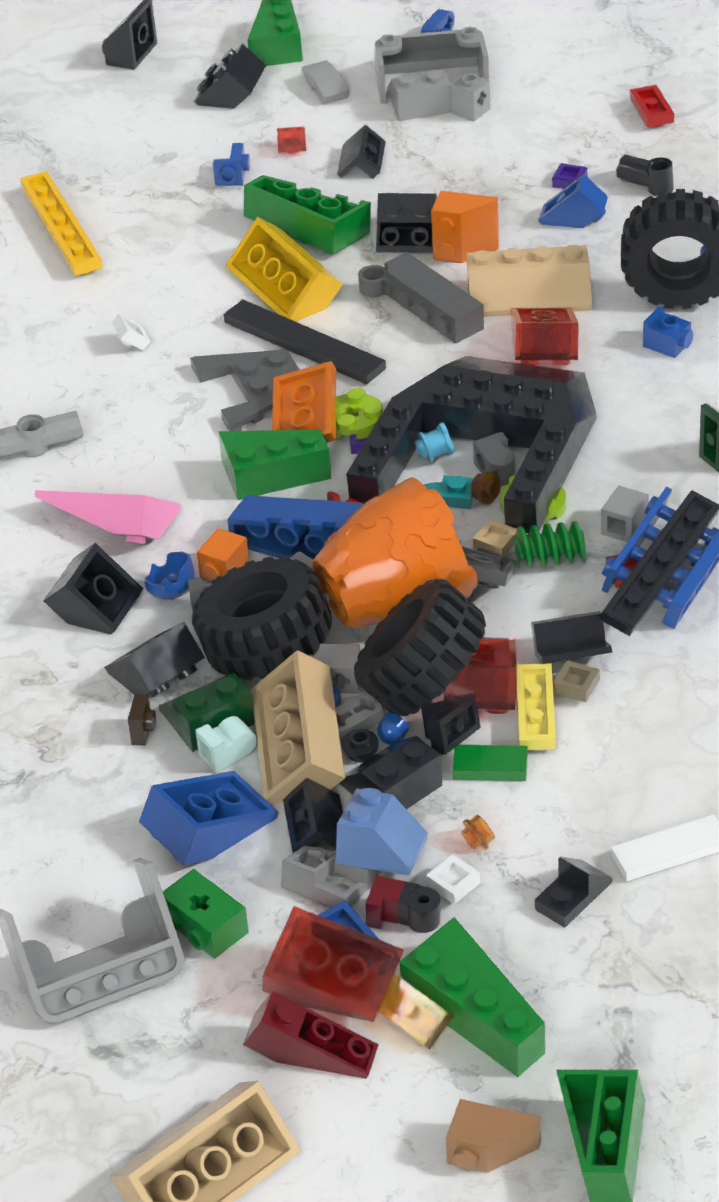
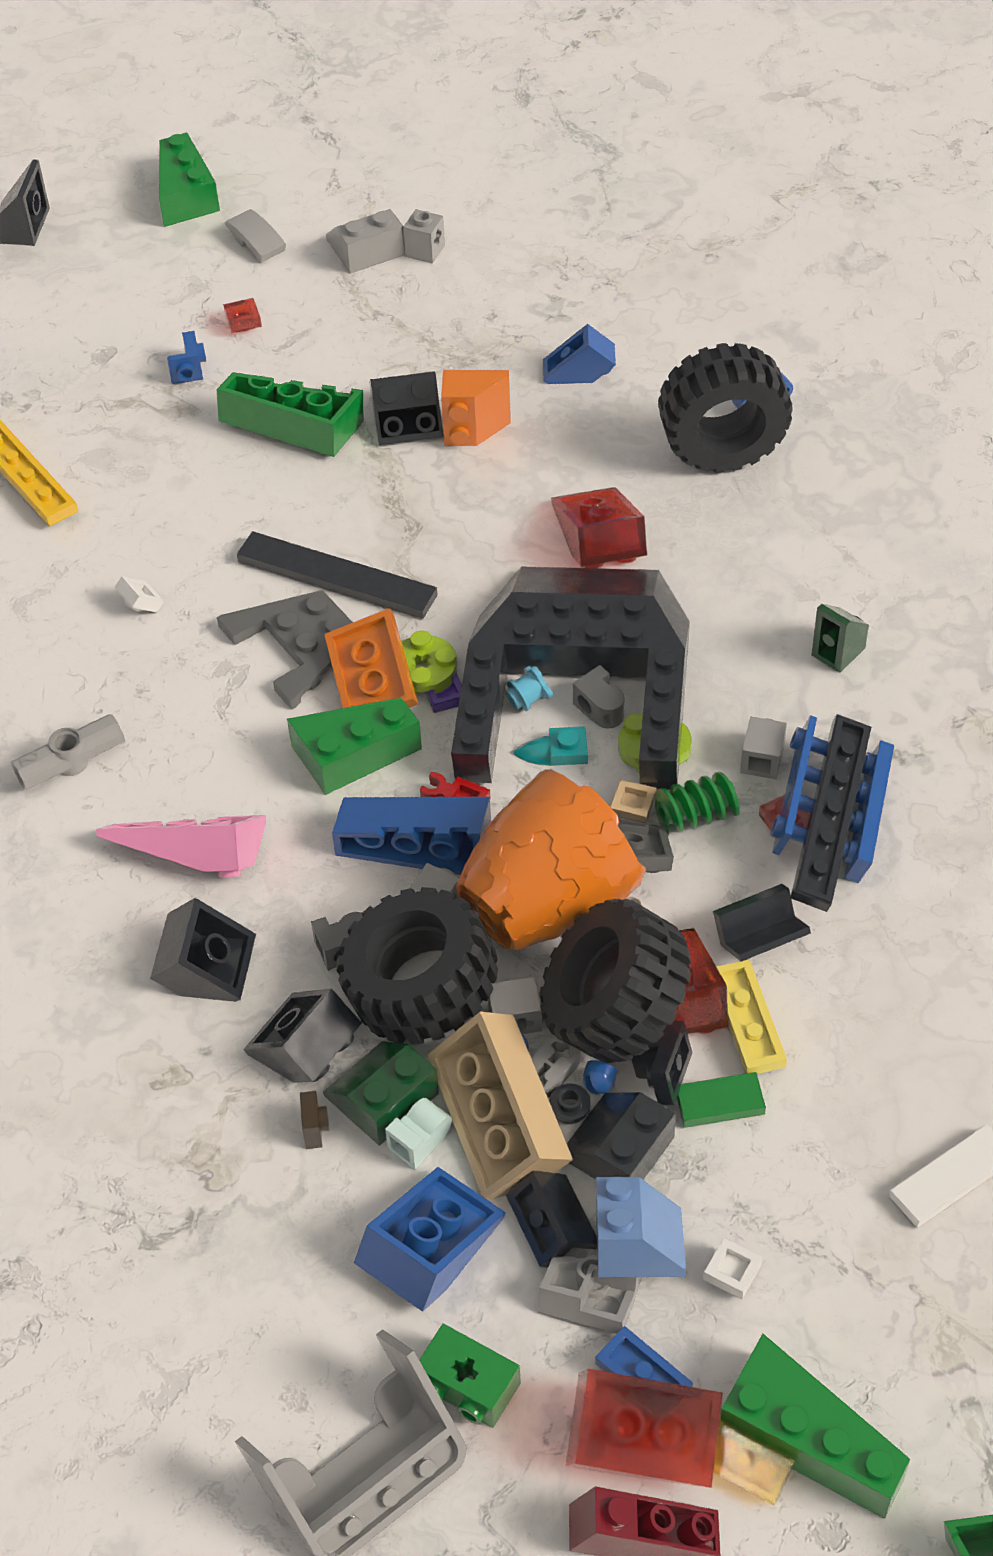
camera: 15 degrees left, 10 degrees up
(172, 578) = (287, 918): blue hair -> none
(221, 553) = (337, 880): orange brick -> none
(231, 80) = (151, 248): black slope -> none
(282, 272) = (287, 490): yellow slope -> none
(362, 150) = (327, 320): black panel -> none
(402, 904) = (689, 1314): leg -> none
(425, 295) = (454, 496): dark grey hinge -> none
(429, 52) = (364, 186): light grey windscreen -> none
(440, 21) = (358, 152): blue beam -> none
(477, 832) = (738, 1199): clear orange plate -> none
(485, 487) = (601, 737): reddish brown plate -> none
(530, 278) = (561, 462): tan slope -> none
(567, 174) = (559, 321): dark purple tile -> none
(572, 890) = (865, 1256): black slope -> none
(576, 681) = (781, 975): dark tan plate -> none
(652, 106) = (620, 221): red plate -> none
(653, 173) = (653, 307): black piece -> none
(666, 333) = (731, 507): blue brick -> none

